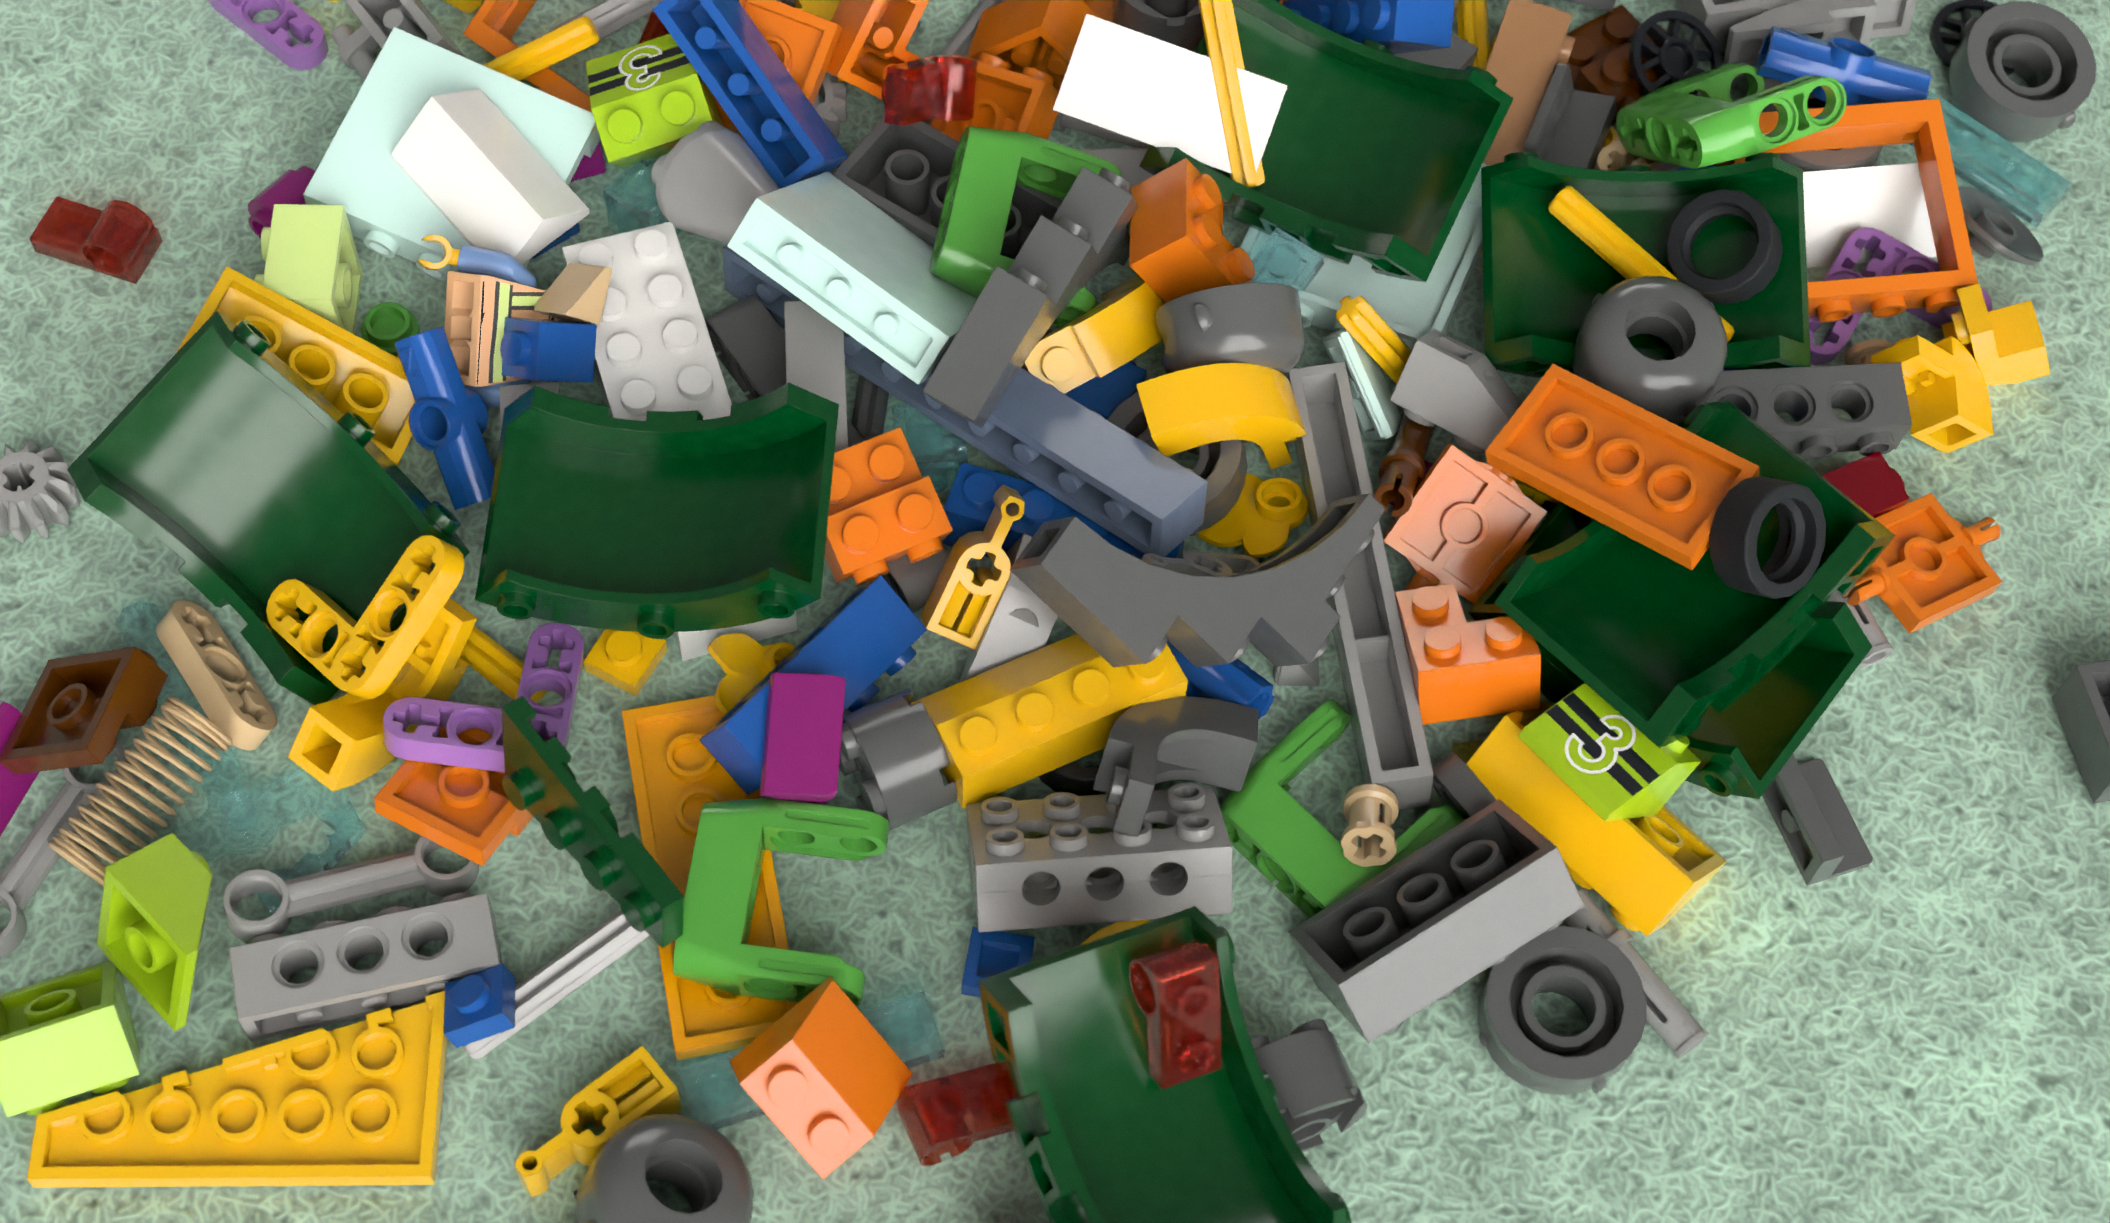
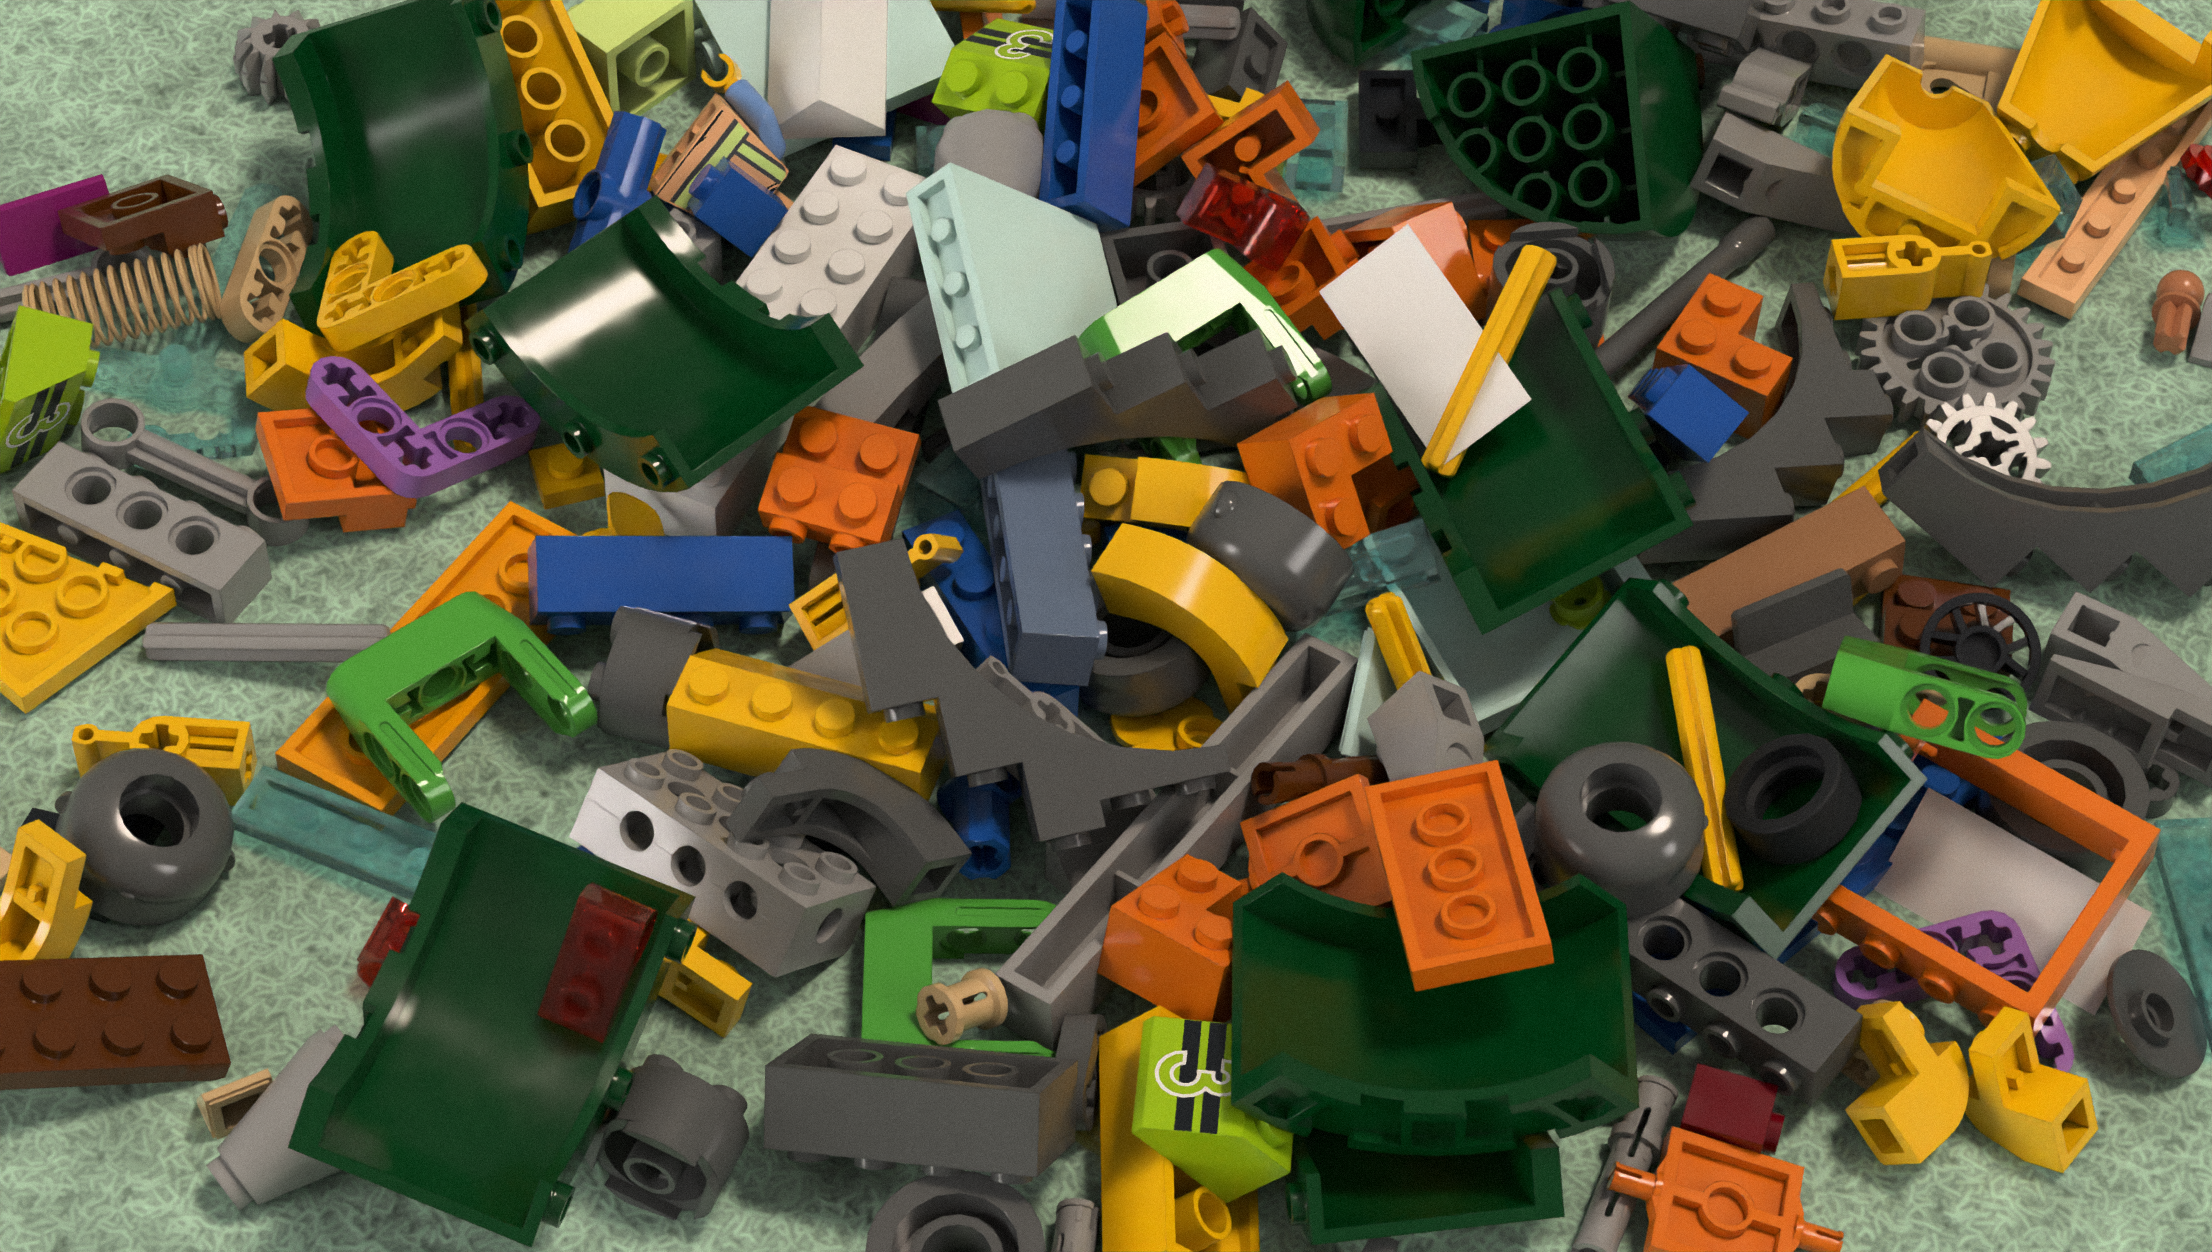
camera: 45 degrees right, 10 degrees down
(388, 324) = (670, 117): bright green plate -> none
(479, 1005) = (178, 611): blue plate -> none
(577, 294) = (797, 179): tan slope -> none
(586, 827) = (357, 526): dark green wing -> none
(803, 737) = (587, 592): magenta slope -> none
(823, 1076) = (340, 838): orange slope -> none
(1736, 533) = (1516, 1062): black tyre -> none
(1857, 67) = (2103, 748): blue piece -> none

